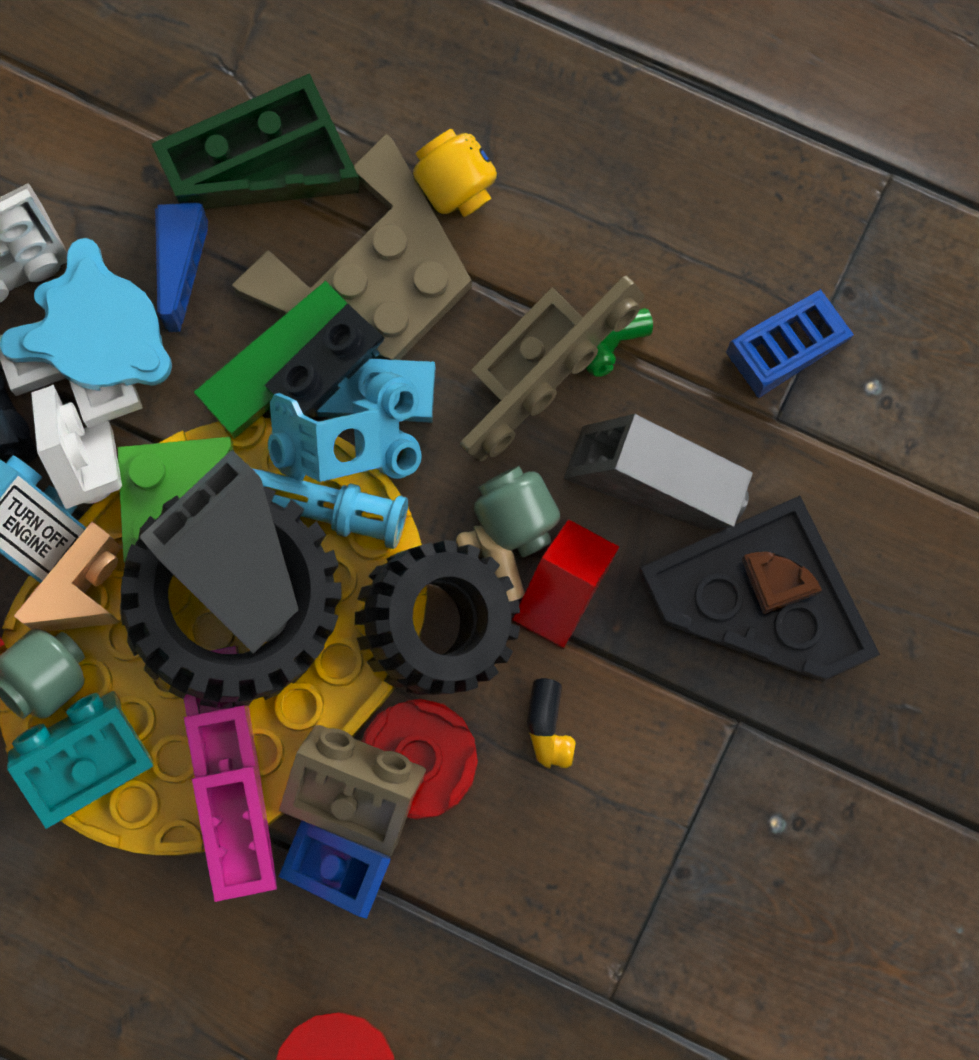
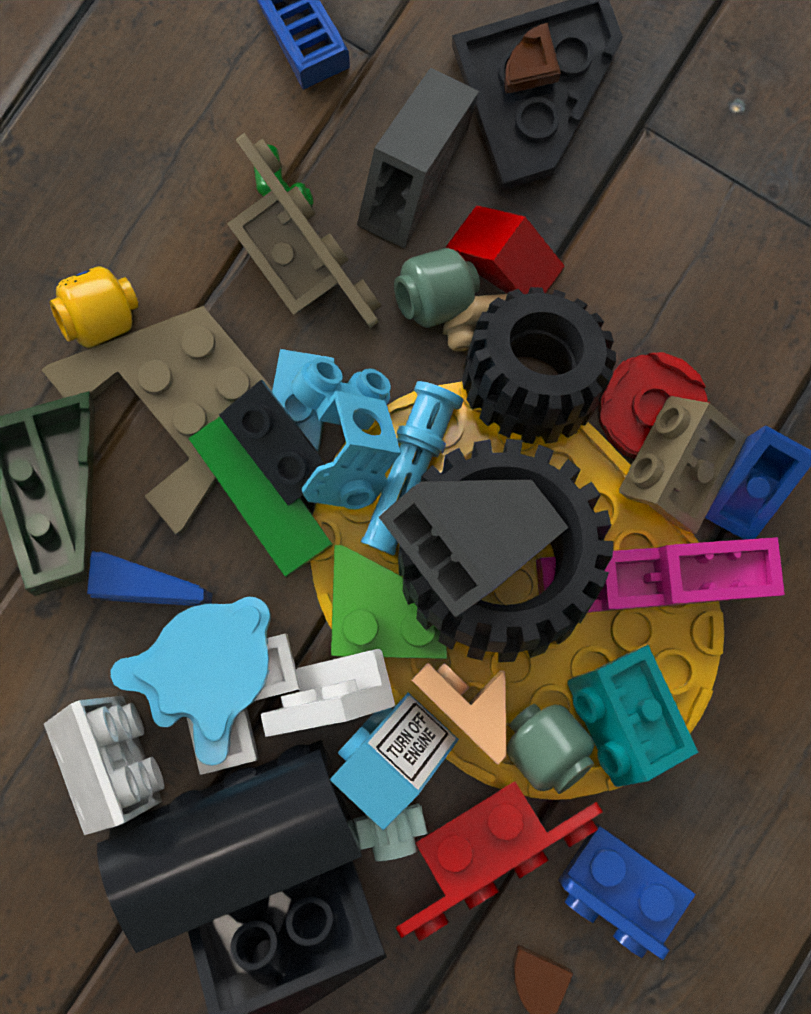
camera: 85 degrees left, 5 degrees up
(542, 724) = (632, 289): arm -> none

